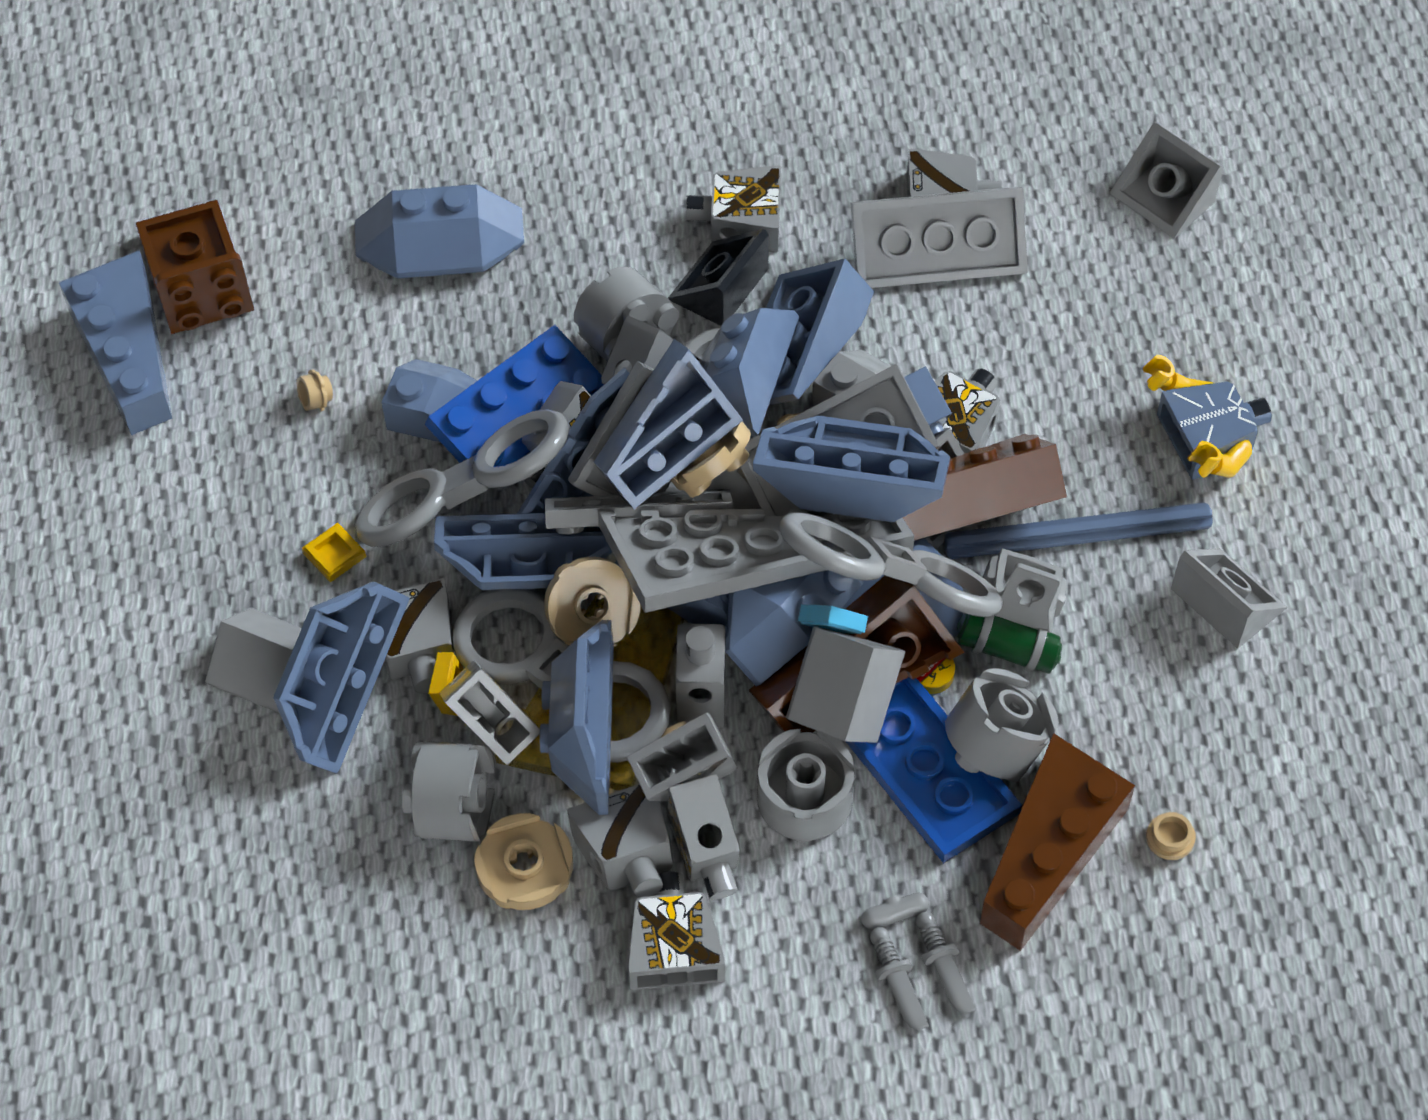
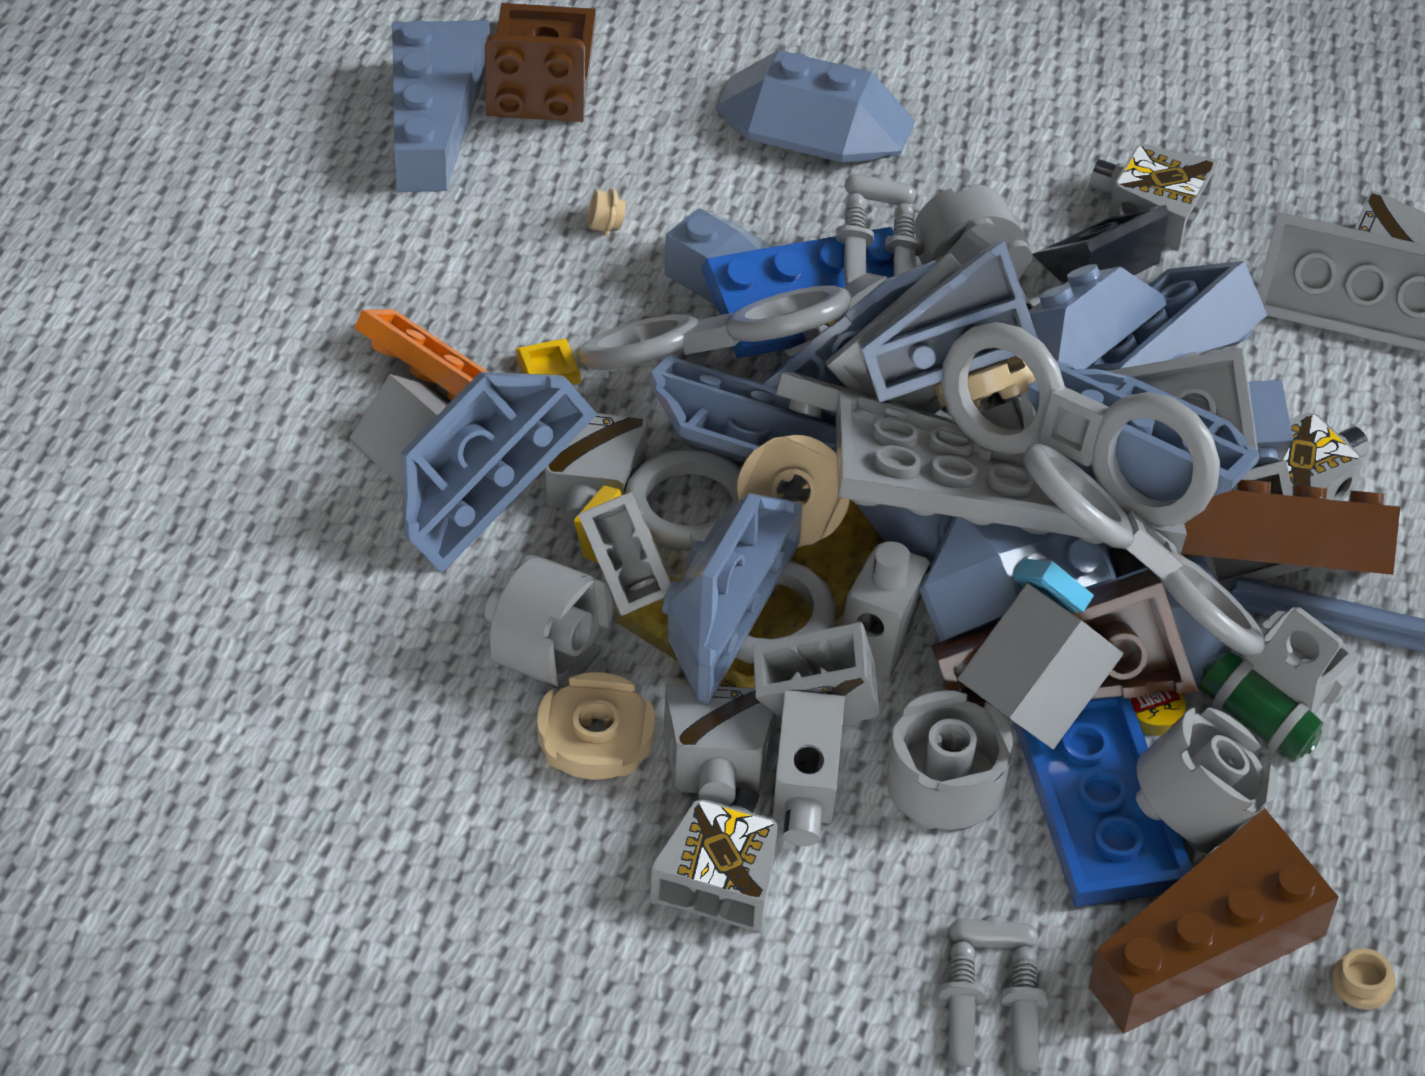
camera: 20 degrees right, 10 degrees down
(245, 586) = (426, 354): none -> orange plate
(573, 340) = (857, 237): none -> light grey piece
(804, 483) = (1079, 424): none -> light grey bar

